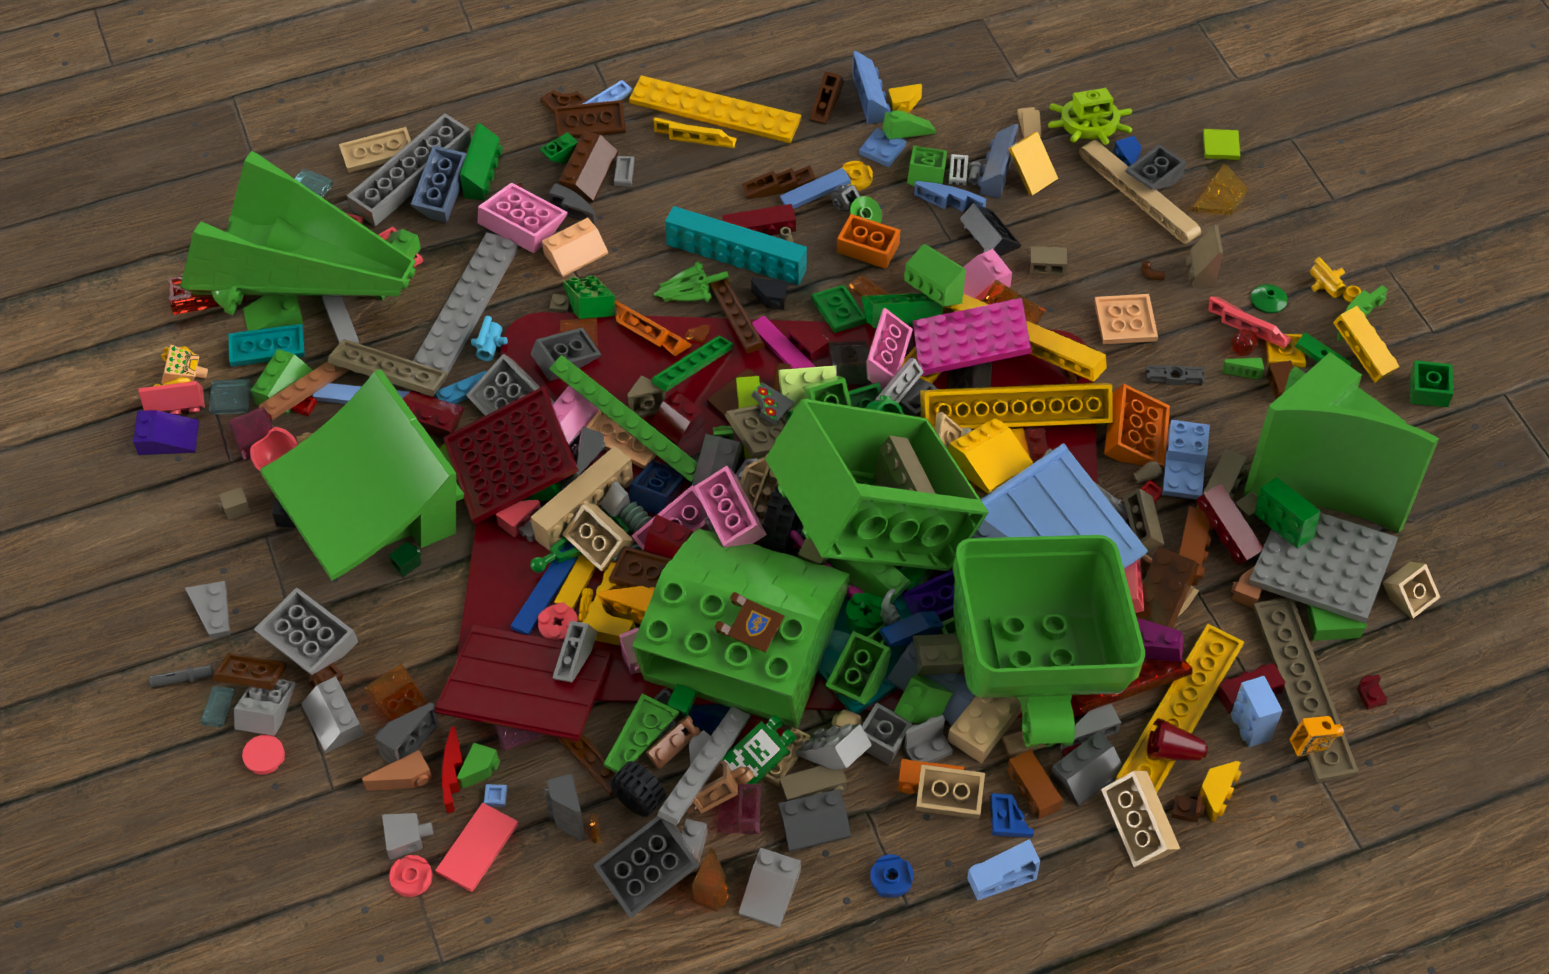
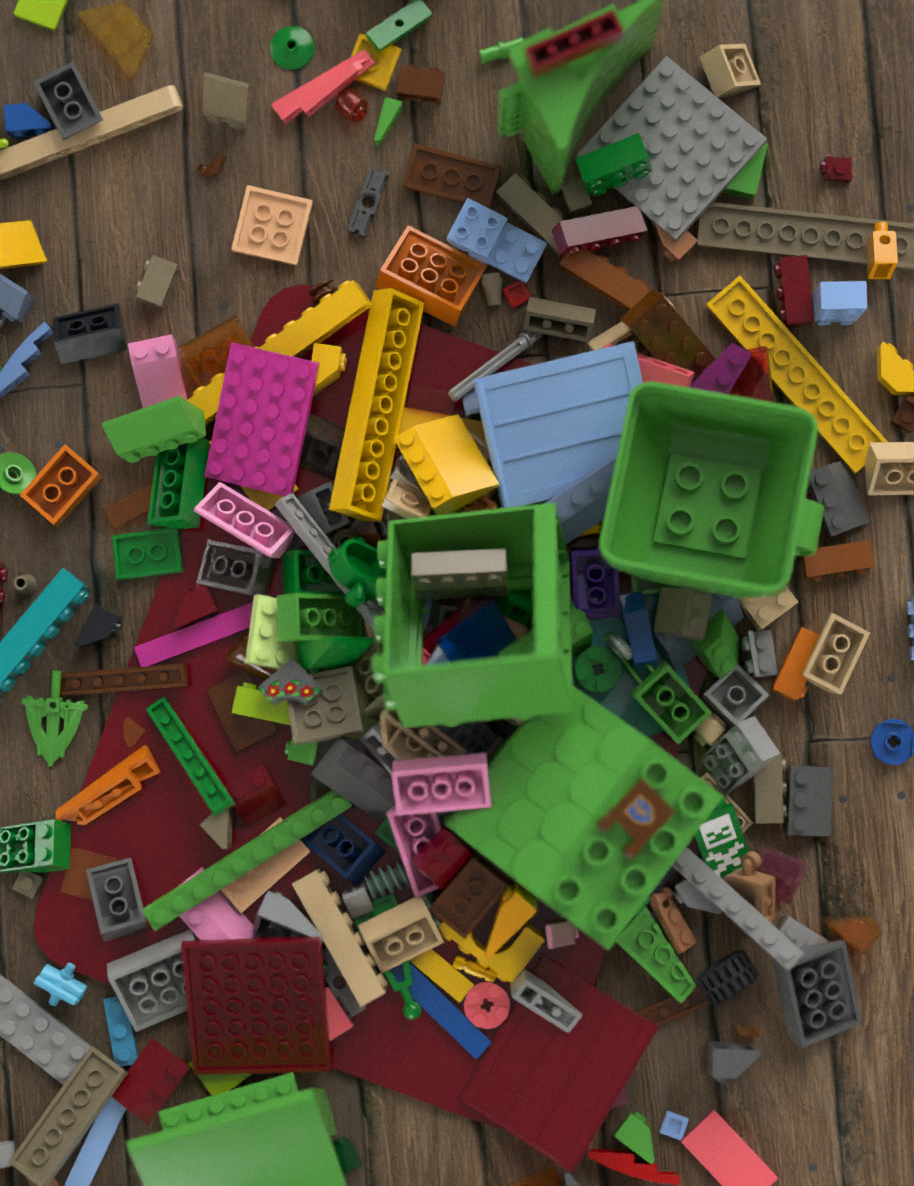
camera: 70 degrees left, 30 degrees up
(770, 887) = (870, 869): light grey slope -> none
(1007, 817) = (864, 601): blue wing -> none
(1029, 369) = (331, 362): none -> yellow slope
(1174, 743) = (846, 402): dark red cone -> none
(1223, 414) = (451, 176): none -> reddish brown plate
(1356, 384) = (573, 43): none -> dark red brick

